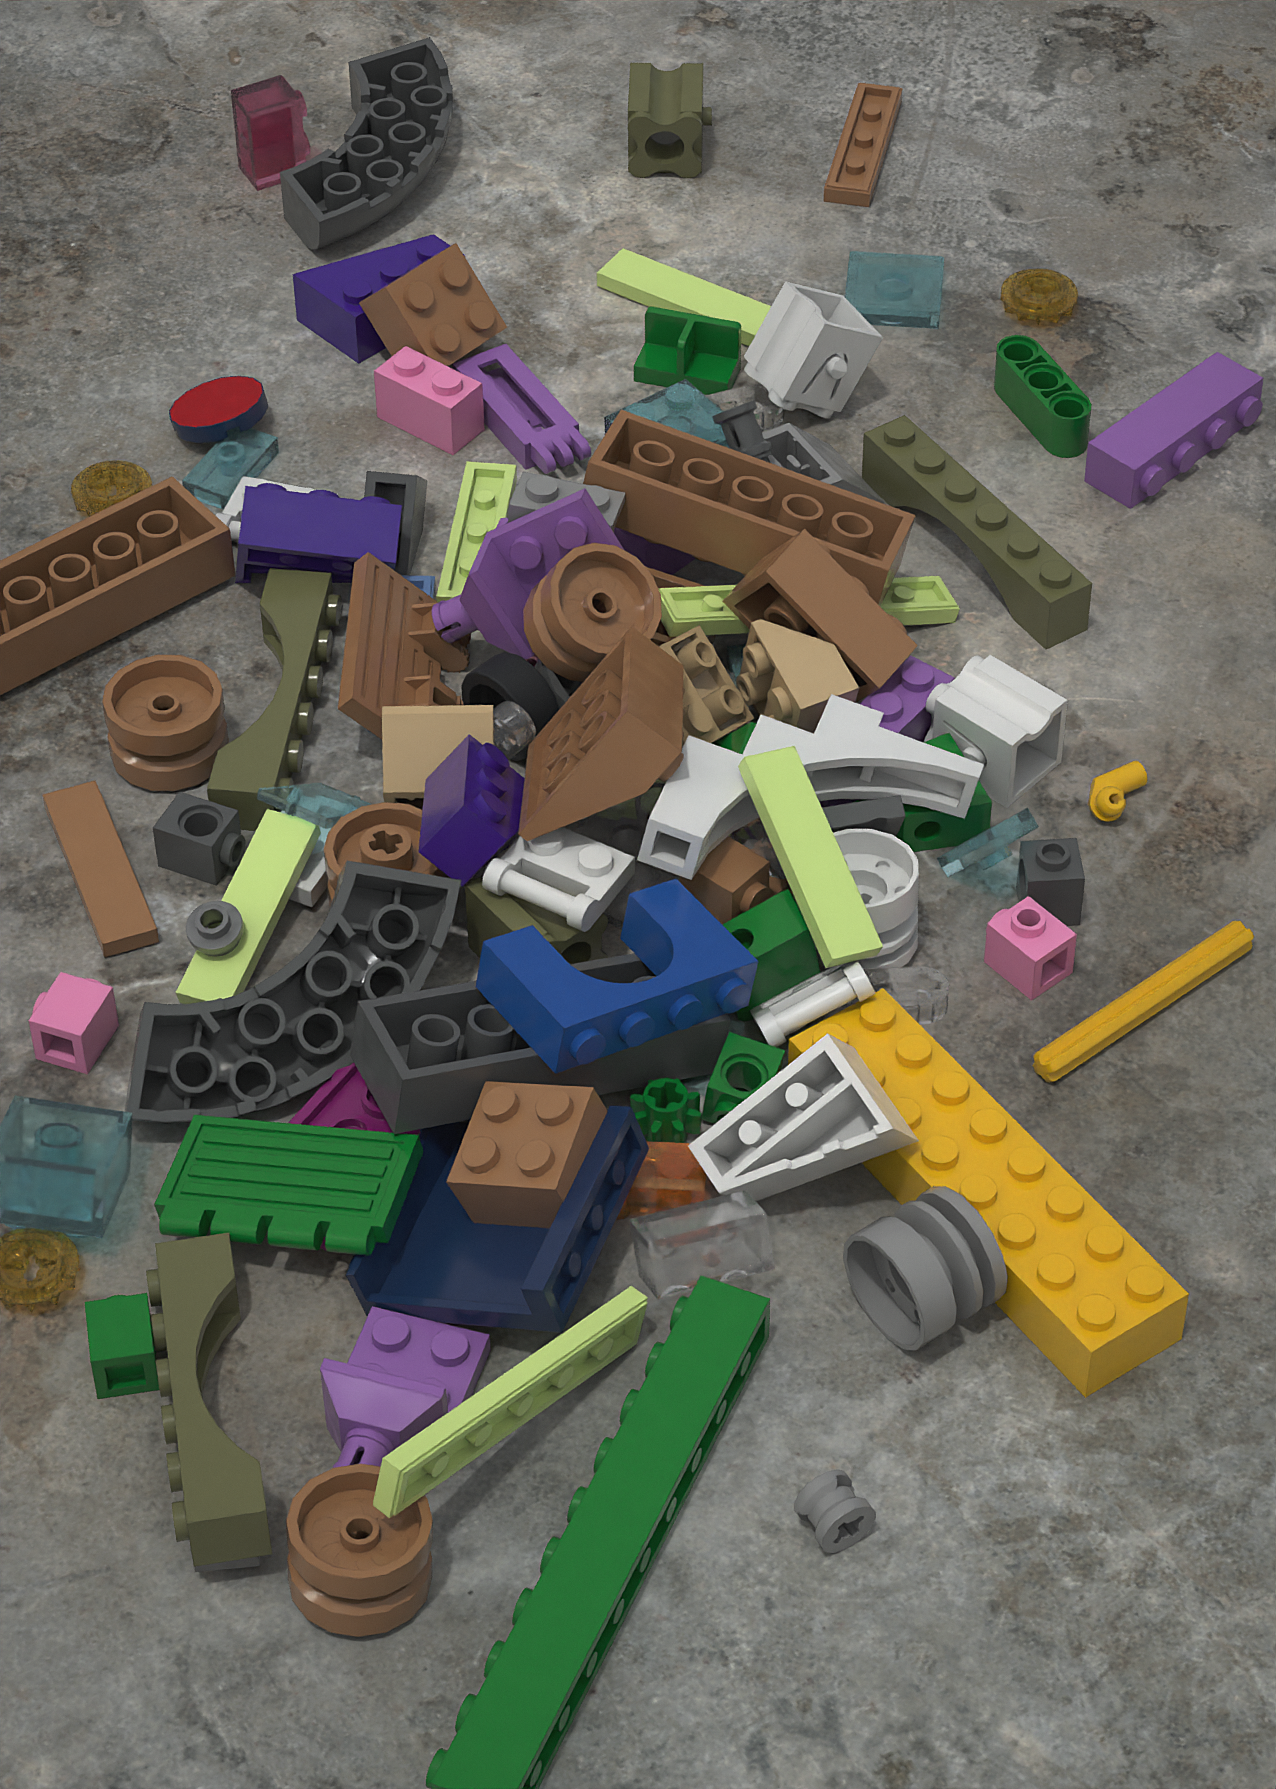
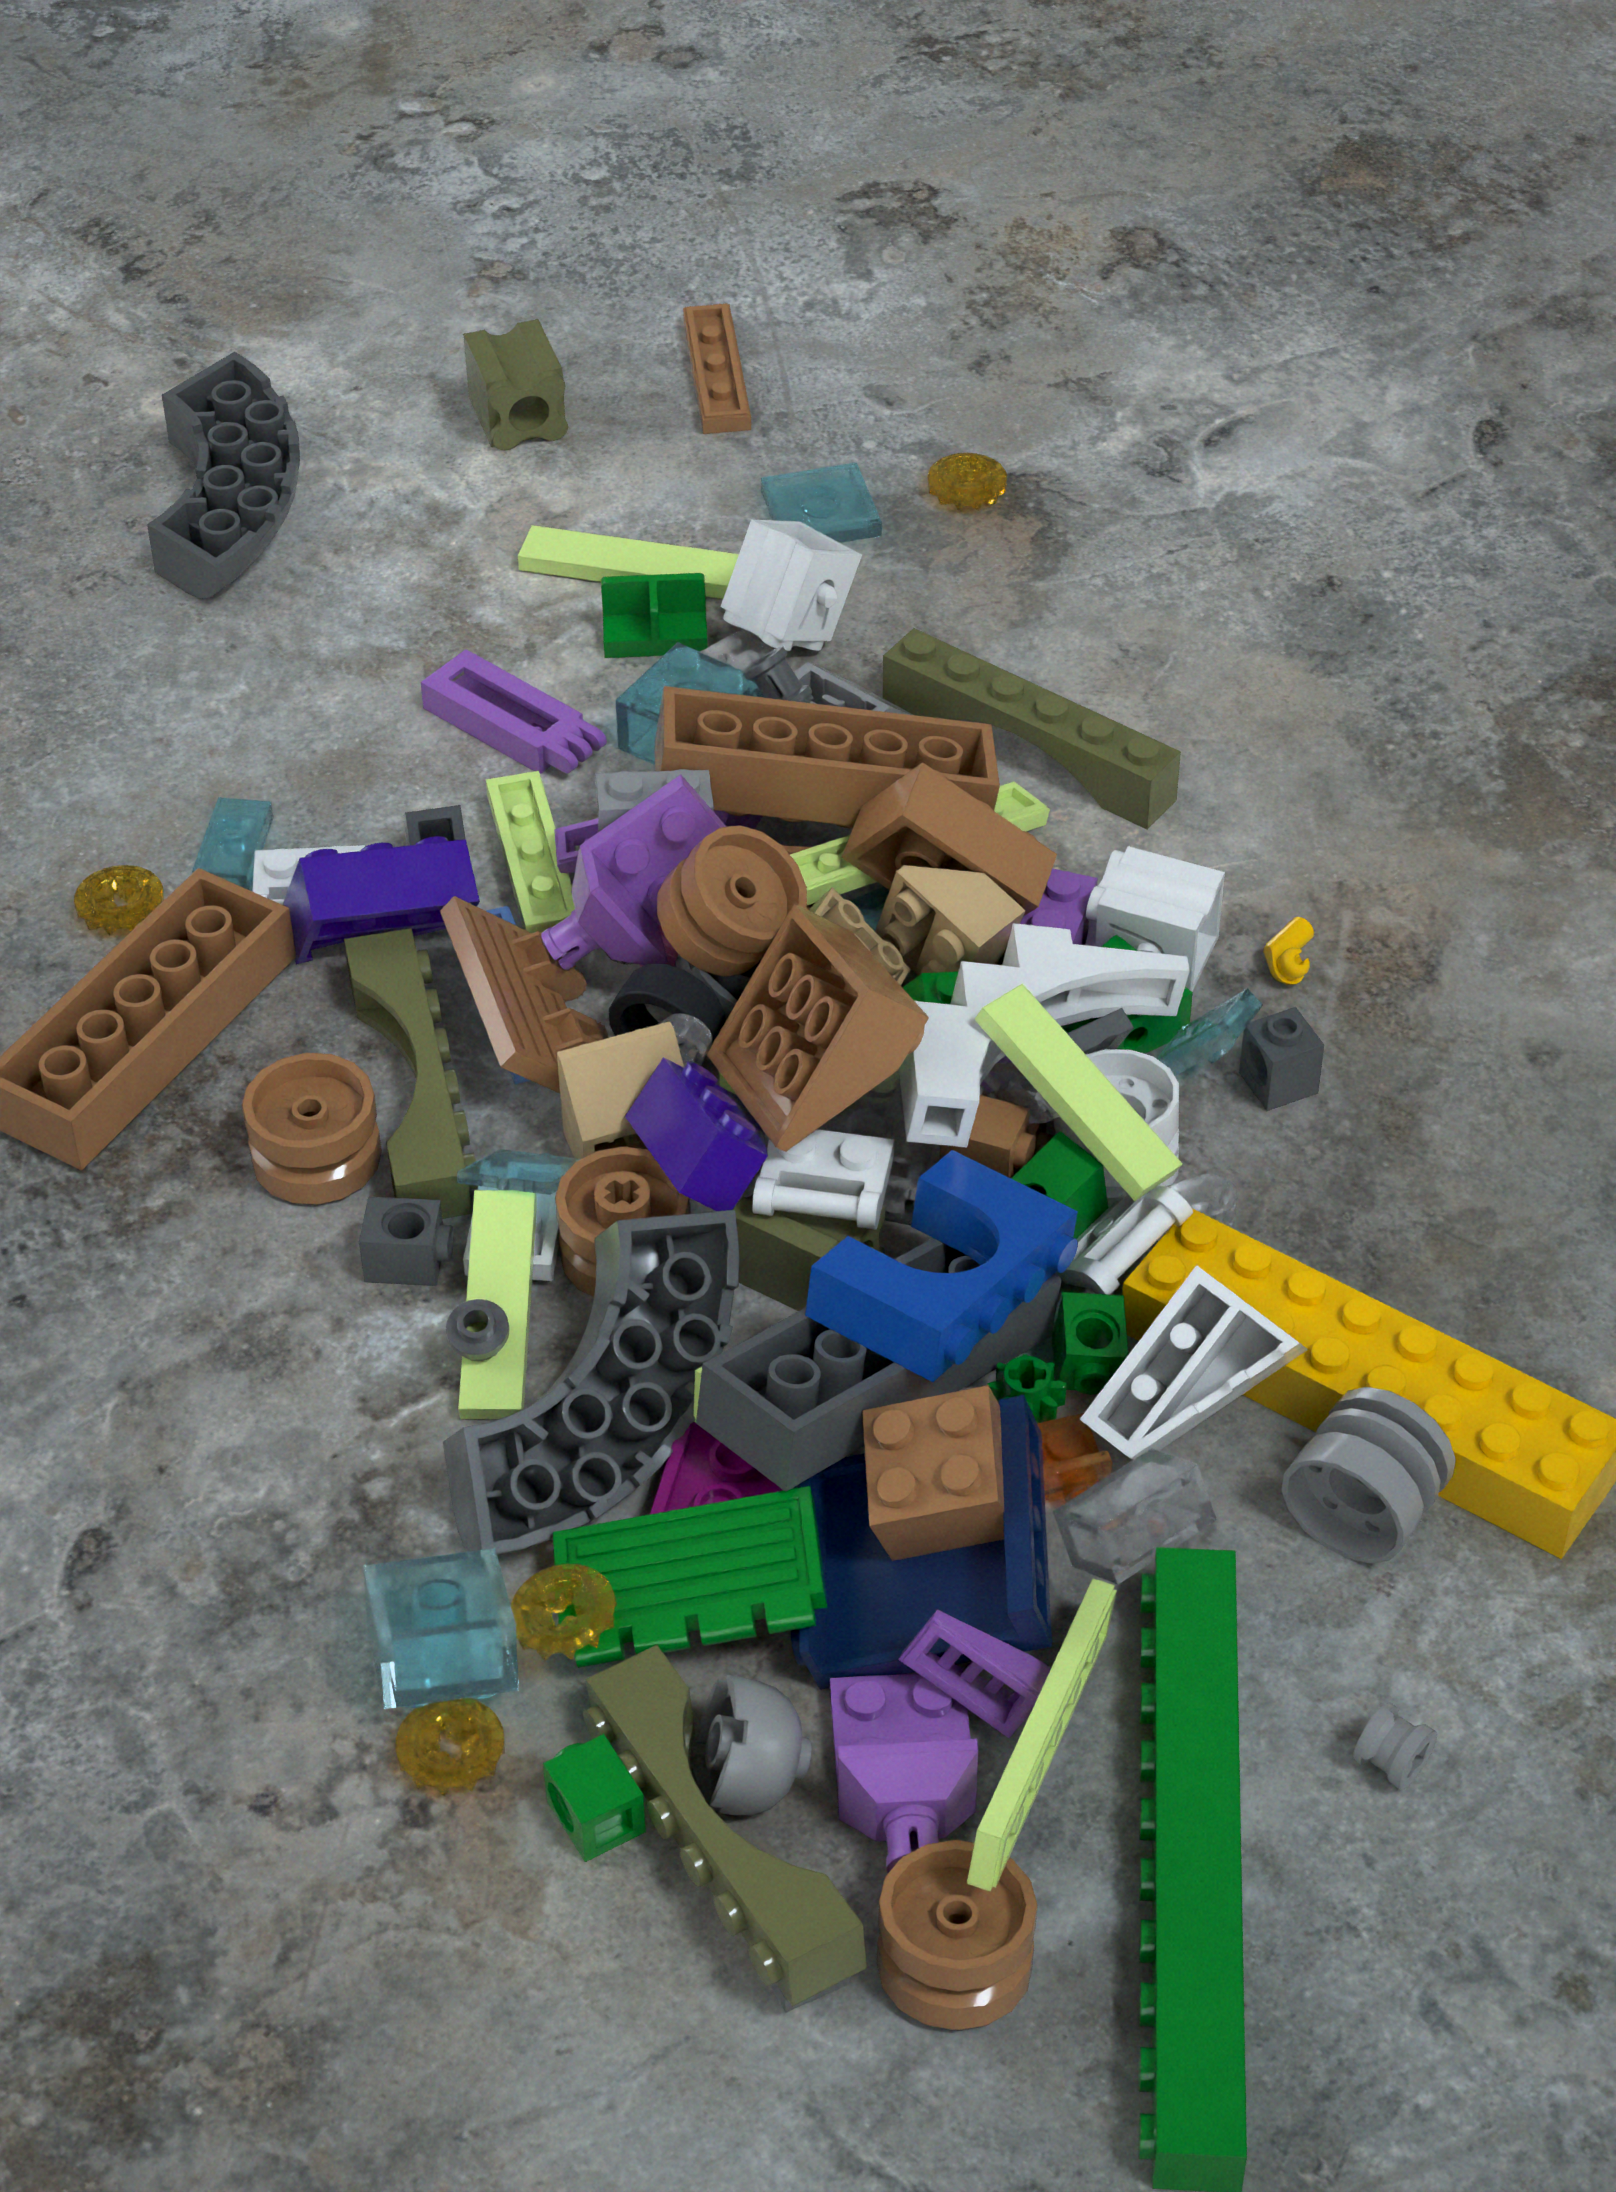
camera: 20 degrees left, 0 degrees up
(73, 1022) = (367, 1471): bright pink brick -> none
(100, 869) = (308, 1301): medium nougat tile -> none
(161, 1163) = (552, 1592): none -> clear yellow gear
(218, 406) = (194, 786): red tile -> none
(269, 130) = (111, 485): clear pink brick -> none
(269, 1344) = (750, 1747): none -> light grey cylinder
(331, 293) = (307, 630): dark purple wedge -> none
(429, 400) = (415, 725): bright pink brick -> none
(435, 309) = (383, 636): medium nougat brick -> none
(506, 1335) = (981, 1696): none -> medium lavender slope
(1029, 947) = (1291, 1127): bright pink brick -> none
(1042, 396) = (1025, 579): green beam -> none
(1142, 1001) = (1420, 1153): yellow axle -> none
(1173, 430) = (1168, 583): medium lavender brick -> none

